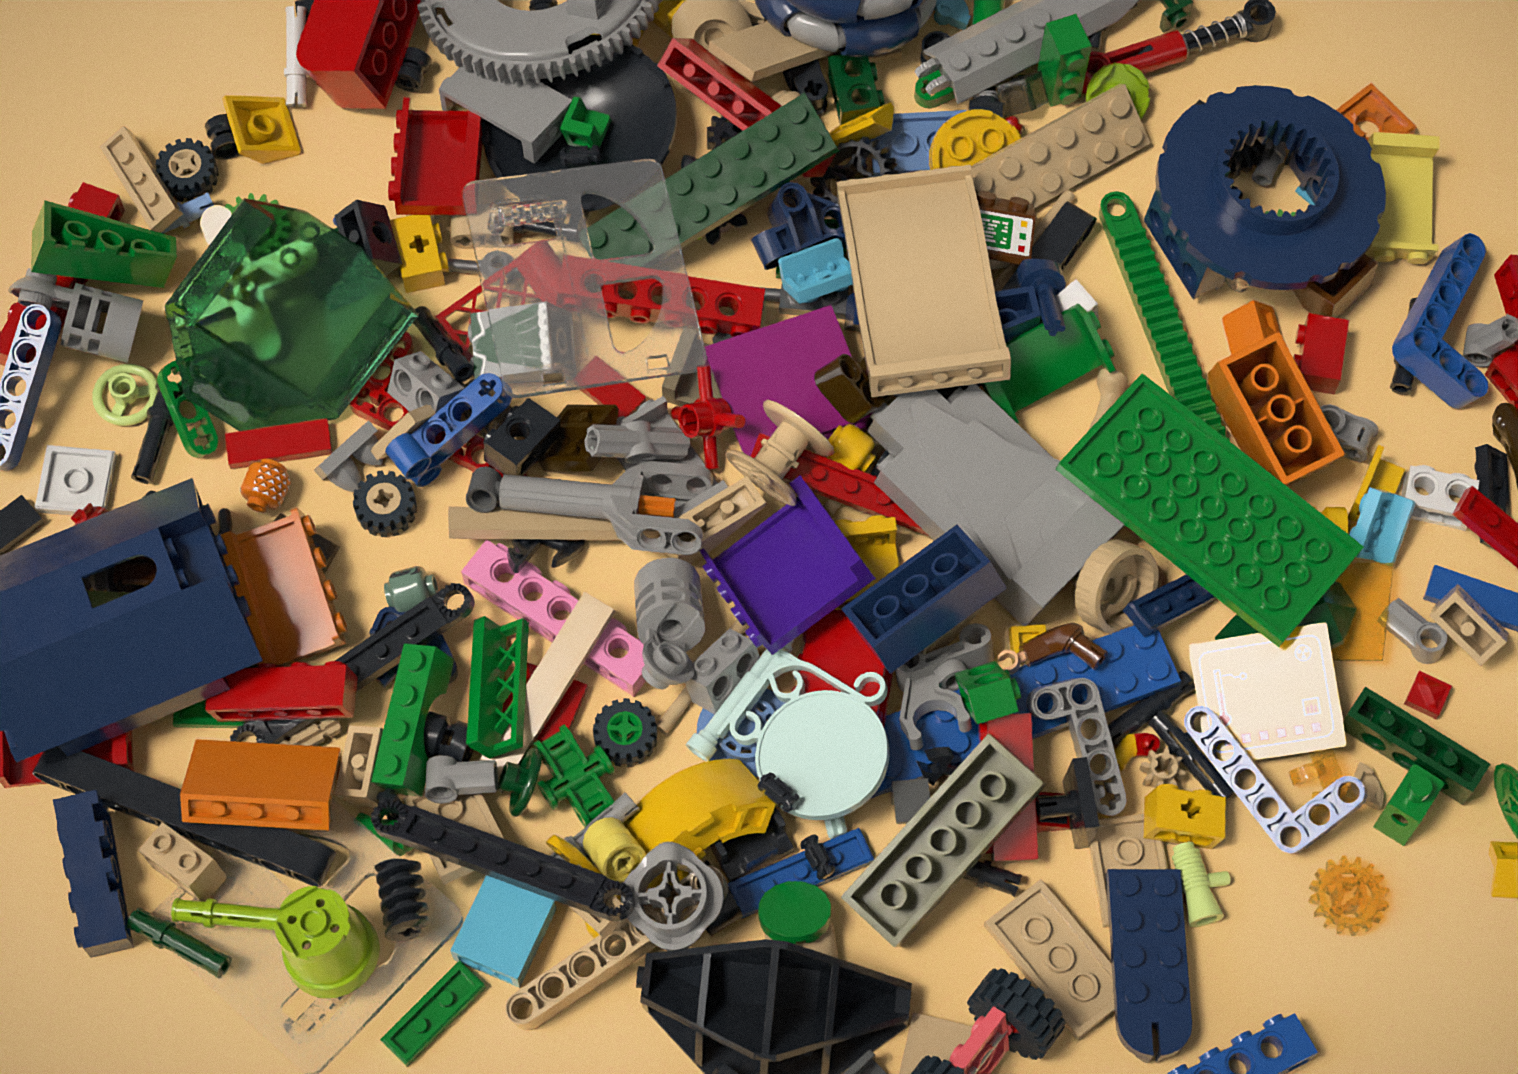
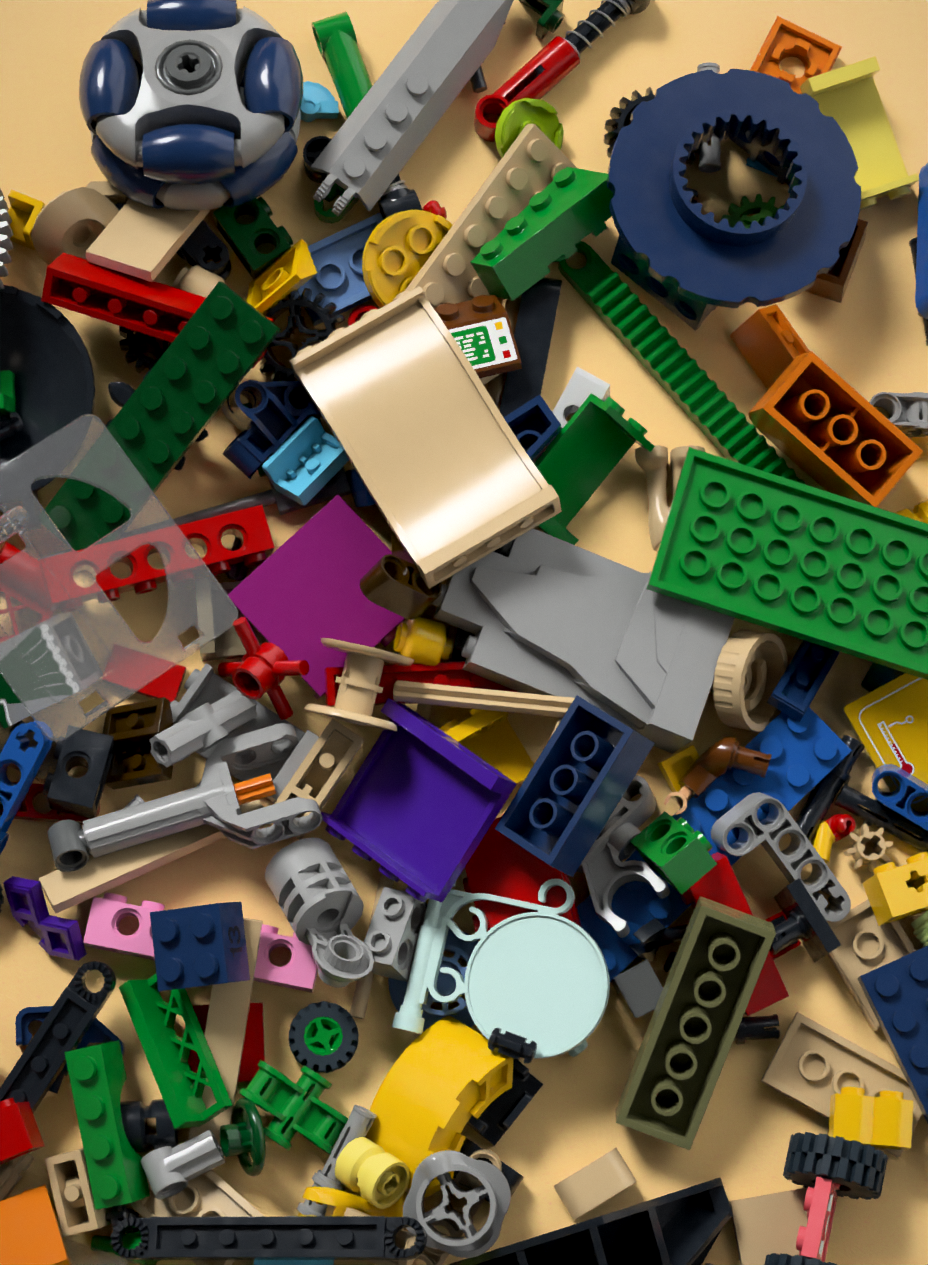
camera: 30 degrees left, 10 degrees up
(409, 588) = (37, 980): sand green head -> none
(430, 532) = (28, 907): none -> dark purple tile
(525, 548) = (137, 888): black piece -> none
(553, 604) = (199, 946): none -> dark blue brick
(794, 912) = (576, 1156): green tile -> none
(817, 857) = (572, 1085): black piece -> none
(846, 853) = (559, 1105): blue tile -> none
(873, 504) = (481, 699): none -> tan axle
(1022, 93) = (429, 169): clear smoke panel -> none
(1047, 282) = (549, 379): dark blue piece -> none
(1064, 59) = (461, 122): green brick -> none
(1072, 991) = (872, 1120): none -> yellow brick
(1094, 170) = (544, 232): none -> green wedge
(1321, 351) = (845, 336): red brick -> none

